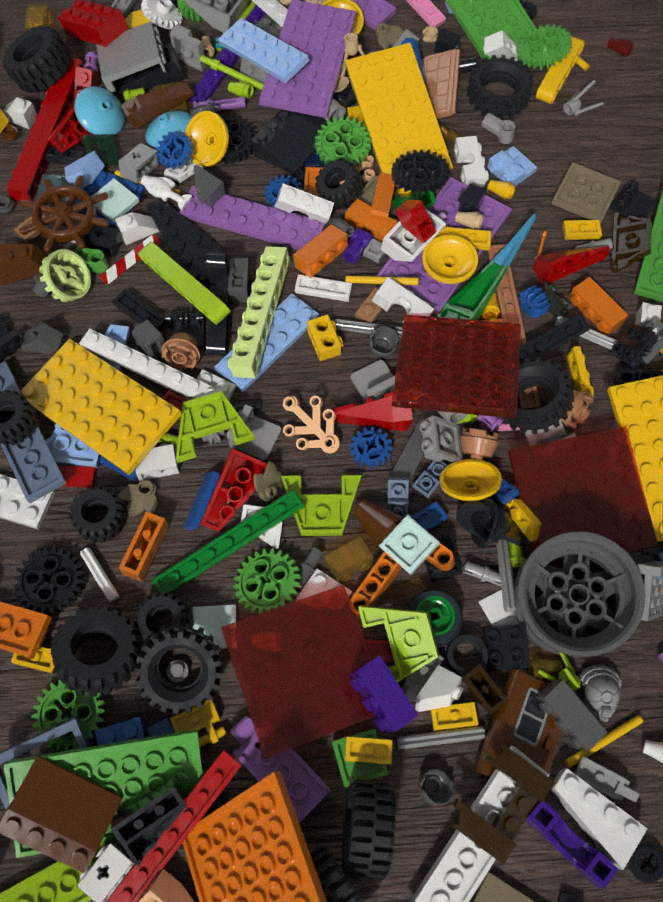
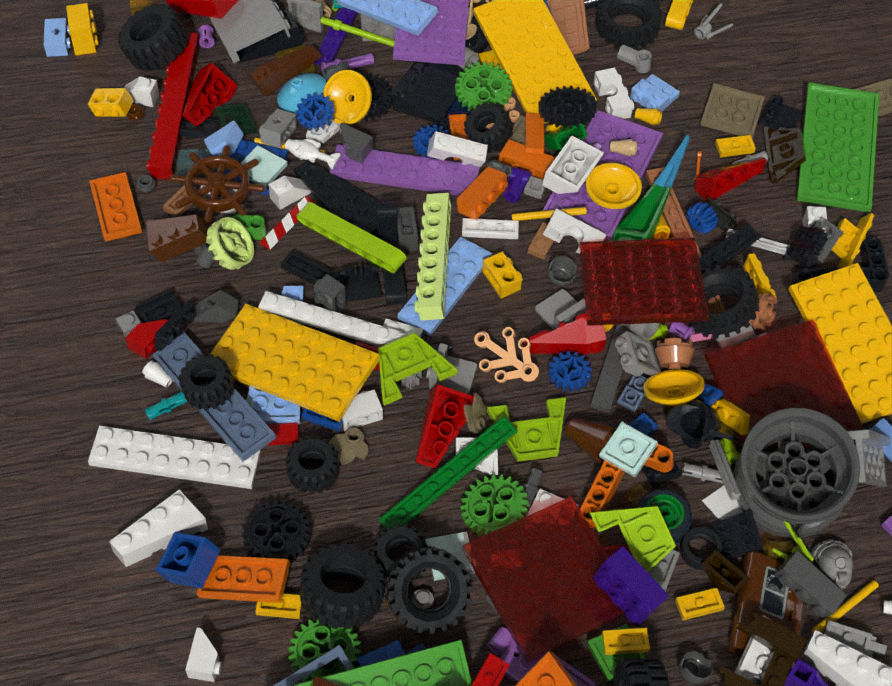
camera: 10 degrees left, 10 degrees down
(85, 78) = (205, 54): red slope -> none
(94, 116) = (227, 81): medium azure dish -> none
(99, 574) = (324, 521): white axle -> none
(105, 239) = (259, 204): black brick -> none
(129, 94) = (253, 63): lime pin -> none
(144, 546) = (366, 488): orange brick -> none
(169, 439) = (368, 386): lime pin -> none
(181, 351) = (363, 302): nougat cone -> none
(200, 719) = (458, 632): yellow plate -> none
(201, 501) = (412, 440): blue tile -> none
(241, 89) = (367, 46): lime cone -> none
(349, 560) = (569, 476): clear yellow brick -> none
(363, 327) = (538, 261): dark grey axle -> none
(398, 495) = (605, 409): sand blue slope -> none
(416, 219) = (575, 151): red slope -> none
(439, 690) = (682, 579): white slope -> none
(440, 737) = (690, 625): light grey axle -> none
(448, 134) = (587, 69): pearl gold bar -> none
(471, 199) = (622, 127): black brick -> none
(478, 238) = (639, 164): yellow plate -> none
(598, 306) = (764, 215): orange brick -> none

